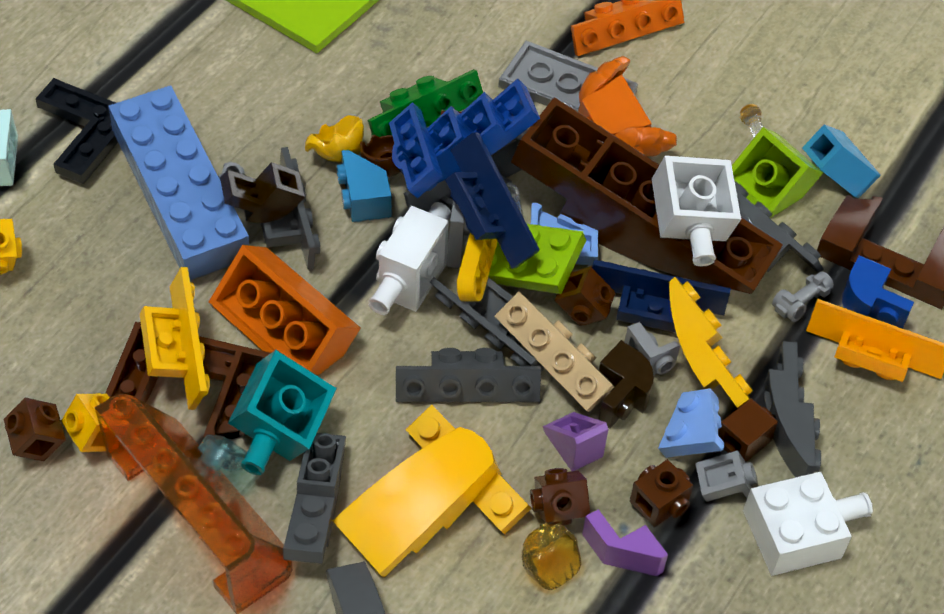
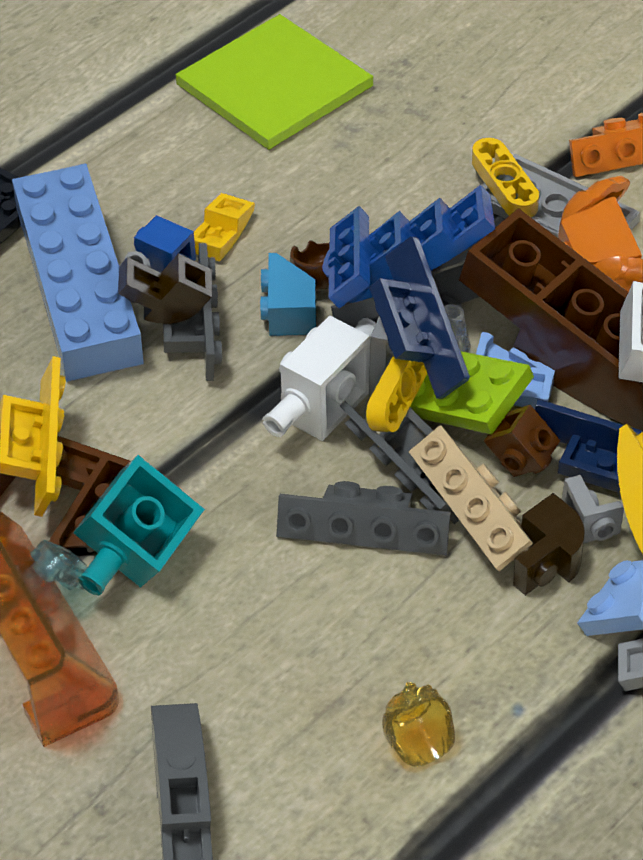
camera: 15 degrees right, 5 degrees down
(249, 150) = (163, 241): none -> blue brick
(282, 310) = (166, 421): orange slope -> none
(291, 127) = (223, 224): none -> yellow slope
(315, 500) = (159, 629): dark grey slope -> none
(333, 139) = (261, 241): yellow hair -> none
(429, 493) = (290, 639): yellow slope -> none
(430, 96) = (380, 206): green bracket -> none
(527, 75) = (505, 164): none -> yellow beam
(560, 496) = (456, 672): reddish brown brick -> none
(578, 439) = (481, 602): medium lavender slope -> none
(633, 552) = (518, 733): medium lavender slope -> none
(661, 492) = (567, 671): reddish brown brick -> none

